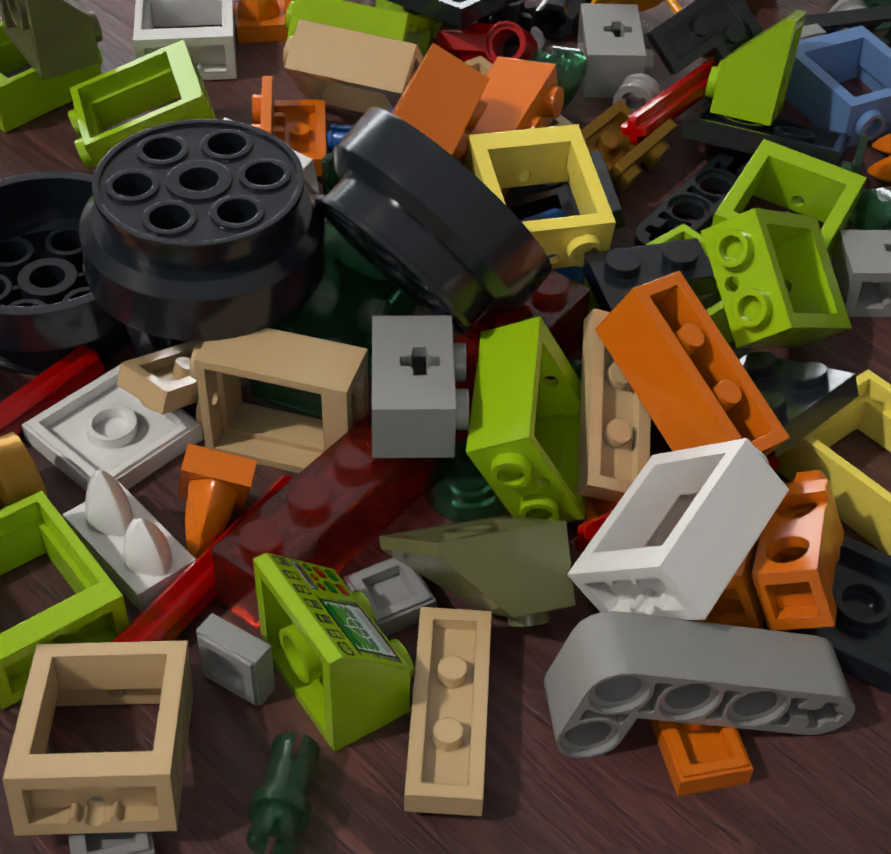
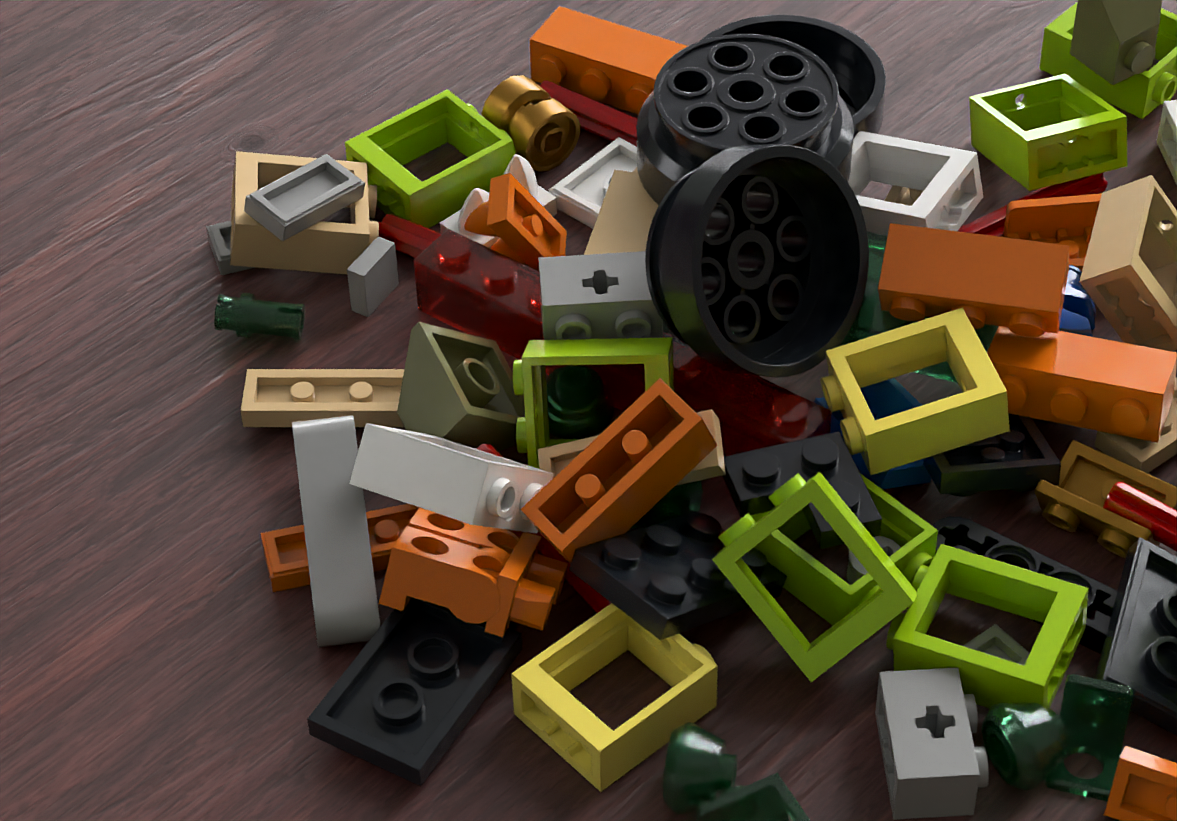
camera: 90 degrees right, 0 degrees up
(129, 693) = (304, 197): none -> light grey tile
(331, 649) = (367, 302): lime slope -> none

